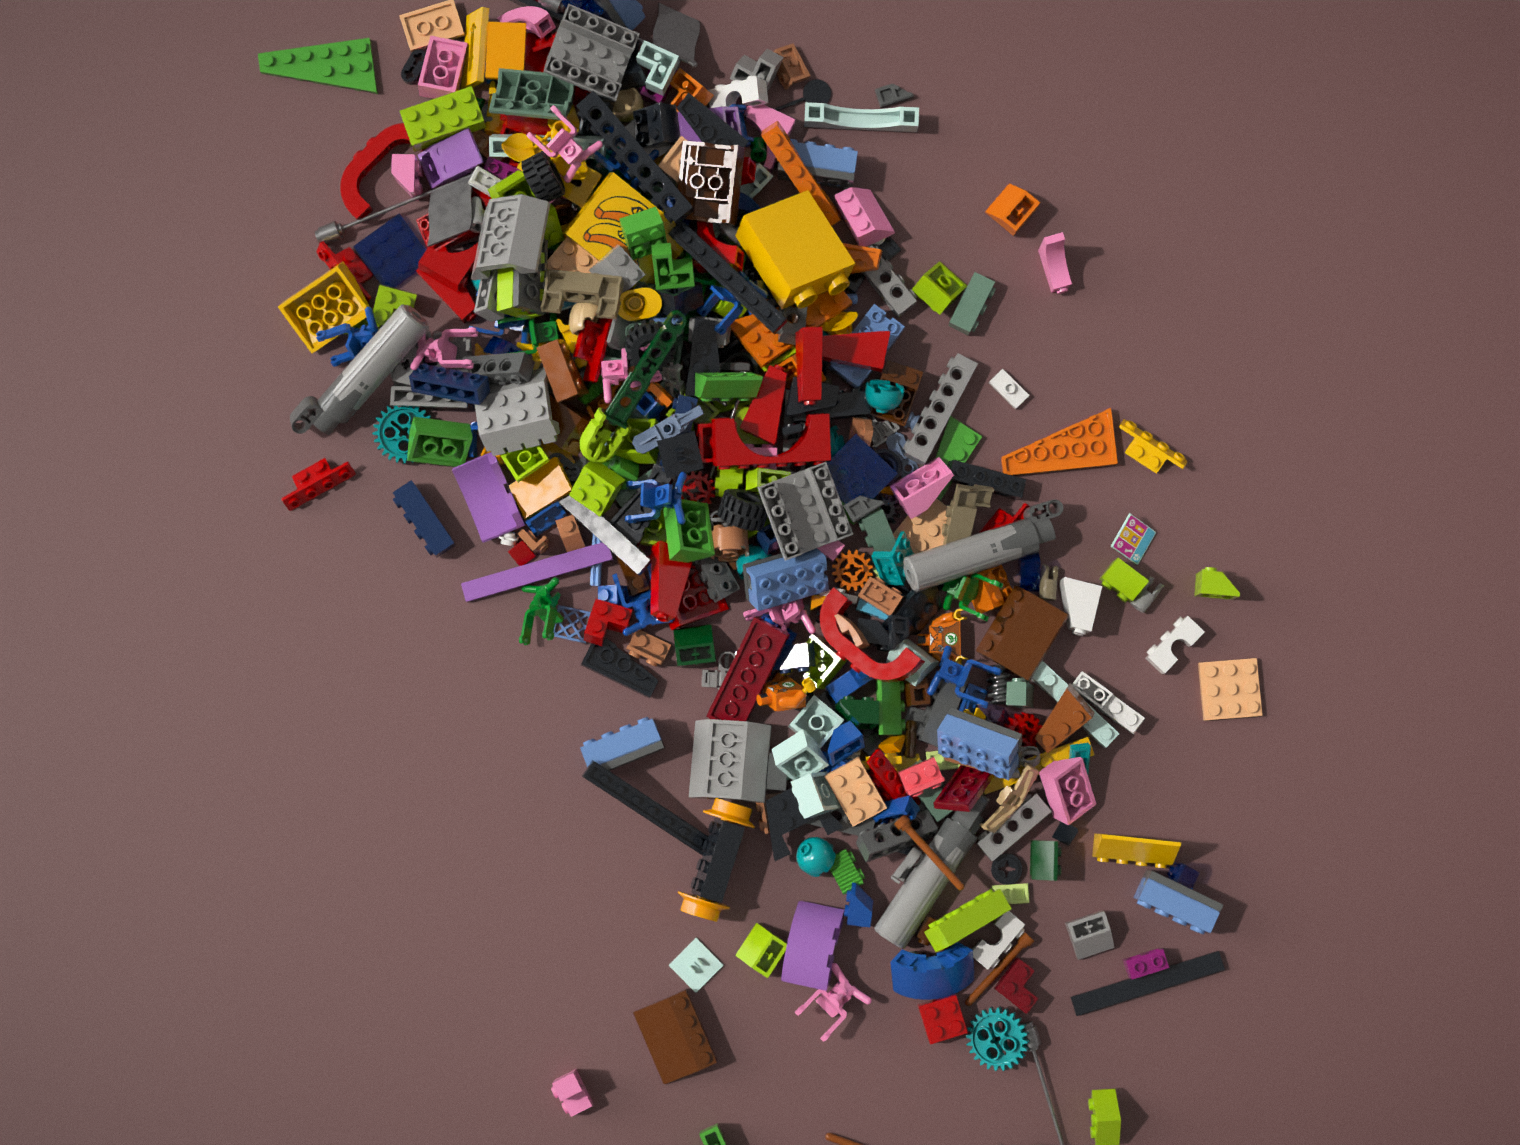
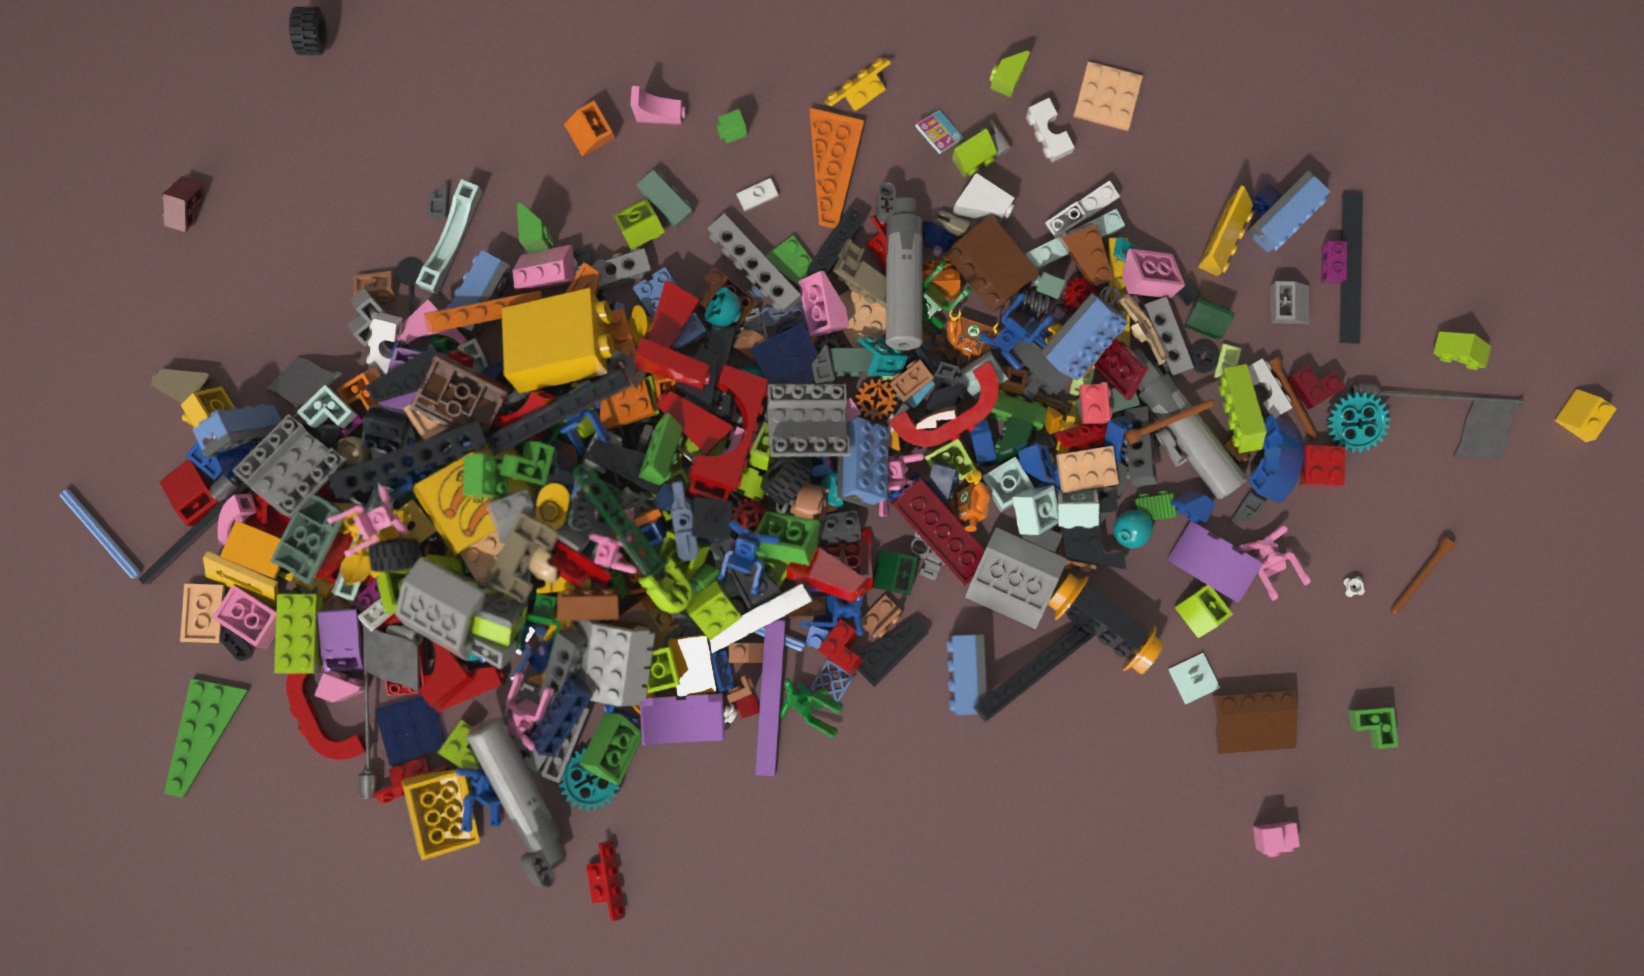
camera: 70 degrees left, 0 degrees up
(423, 518) = (680, 789): dark blue brick -> none
(832, 1088) = (1359, 589): none -> white plate
(876, 962) = (1249, 508): none -> dark grey tile
(892, 191) = (532, 232): none -> bright green slope
(1063, 340) = (731, 126): none -> bright green brick

